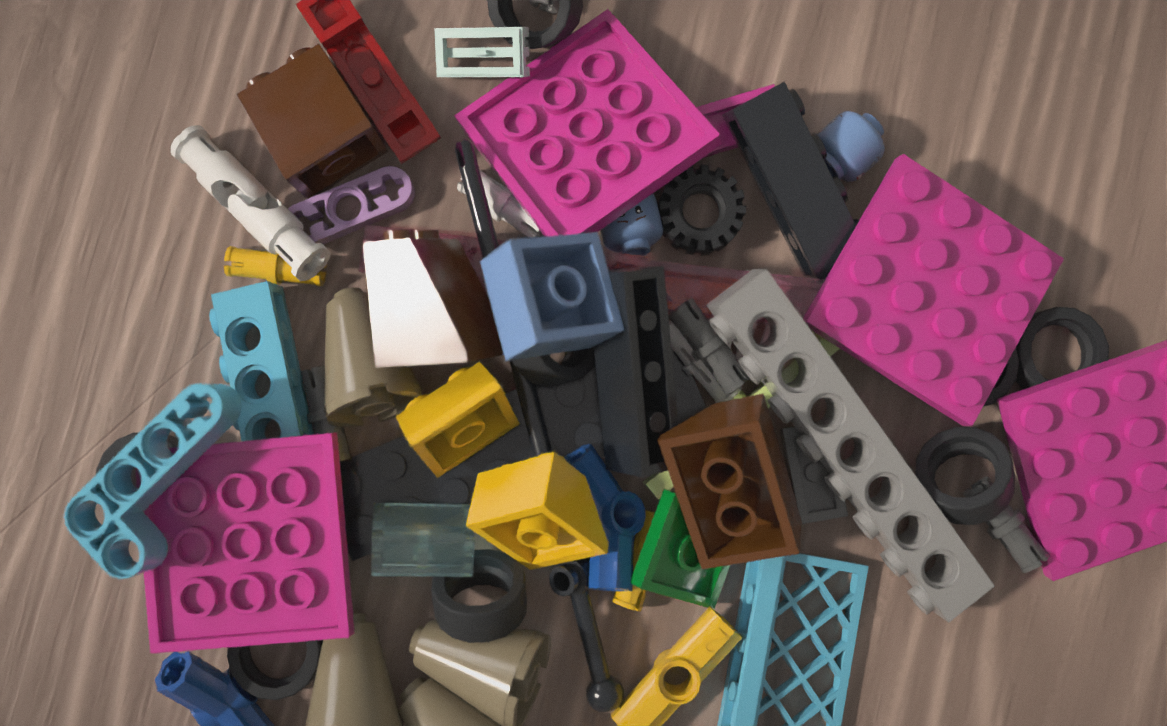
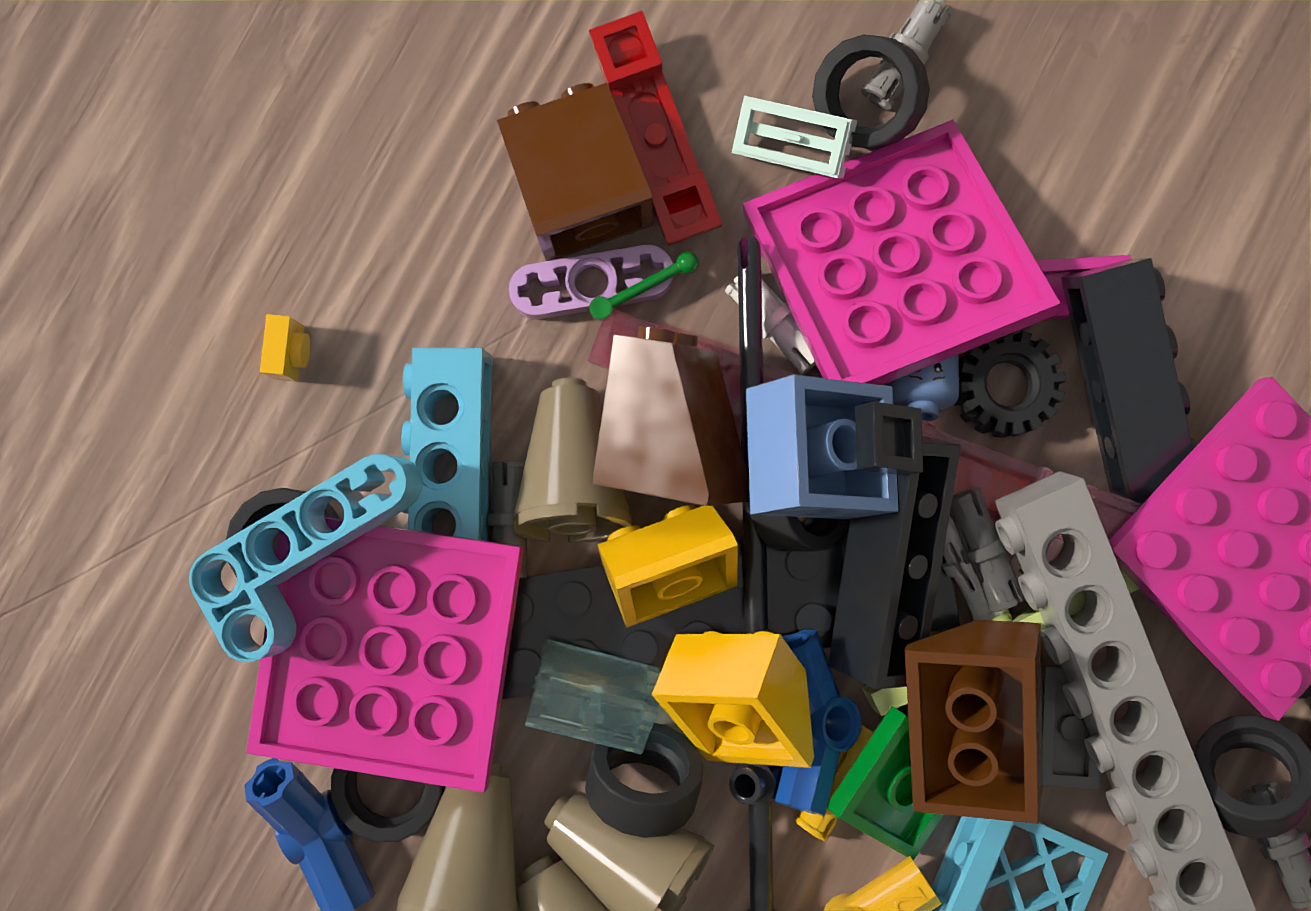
camera: 20 degrees right, 0 degrees up
(108, 320) = (284, 348): none -> yellow plate
(250, 202) = (482, 254): white piece -> none
(264, 266) = (491, 330): yellow pin -> none
(360, 225) = (602, 307): none -> green hinge
(600, 273) = (888, 438): none -> black plate
(852, 144) = (1208, 348): medium blue head -> none

